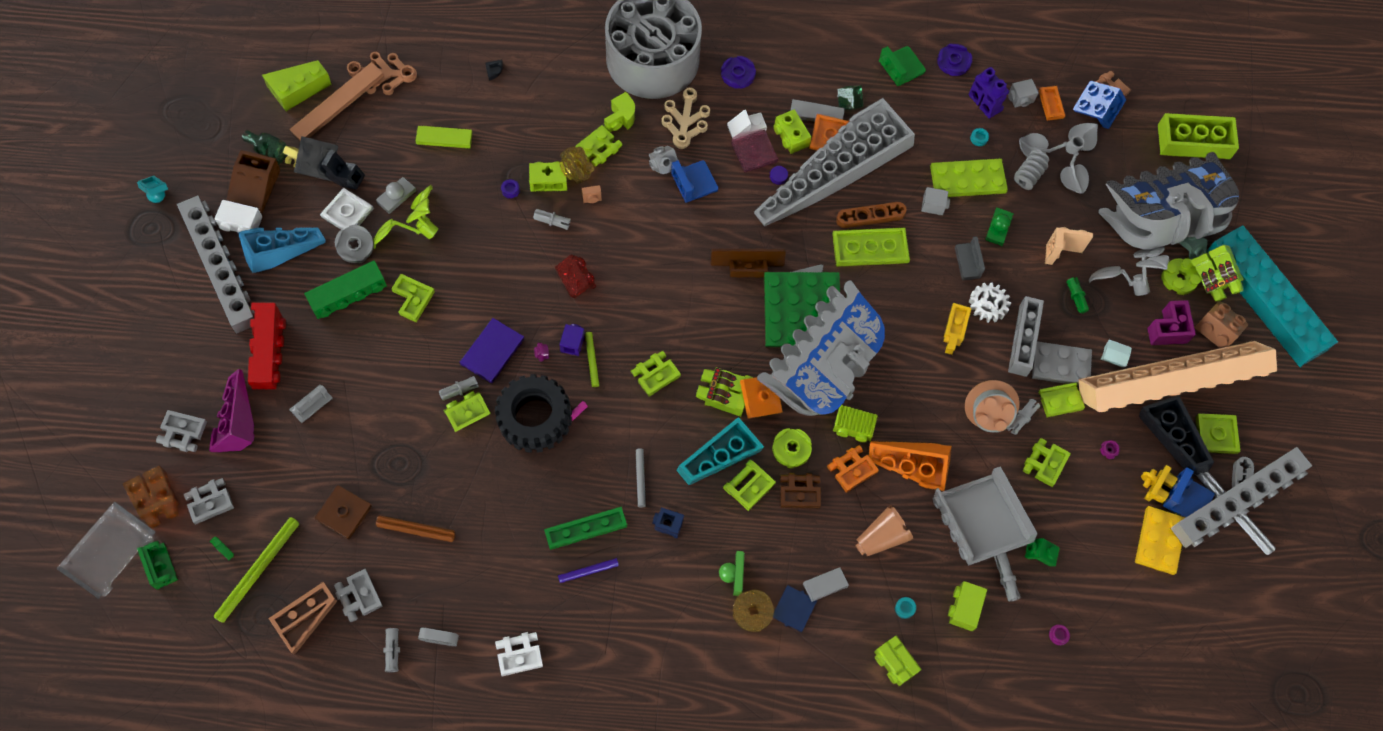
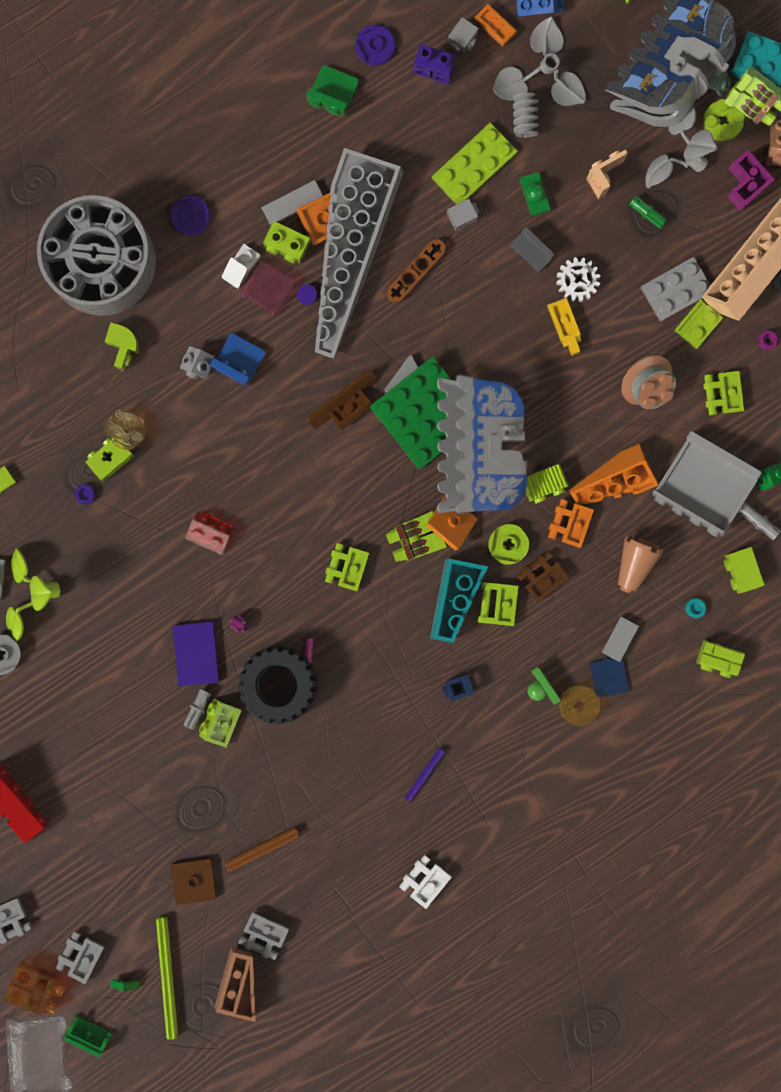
camera: 30 degrees left, 20 degrees up
(236, 419) = (44, 882): magenta wedge -> none
(311, 403) = (88, 816): light grey hinge -> none
(345, 290) = (30, 701): green brick -> none
(391, 650) = (325, 955): light grey pin -> none
(417, 296) = (93, 656): lime plate -> none
(438, 637) = (353, 918): light grey beam -> none
(551, 219) = (145, 495): light grey axle -> none
(572, 339) = (254, 592): dark purple brick -> none
(585, 528) = (396, 743): green plate -> none
(591, 194) = (161, 446): nougat plate -> none
(592, 359) = (284, 596): lime bar -> none
(596, 141) = (121, 391): lime plate -> none
(640, 478) = (405, 666): light grey bar -> none
(685, 120) = (183, 305): tan plant -> none
(850, 97) = (311, 164): clear green panel -> none
(870, 247) = (438, 303): lime tile -> none
(979, 137) = (454, 113): teal tile -> none
(1024, 416) = (678, 364): light grey pin -> none
(1026, 336) = (631, 290): light grey brick -> none
(1116, 353) = (717, 244): light aqua piece -> none

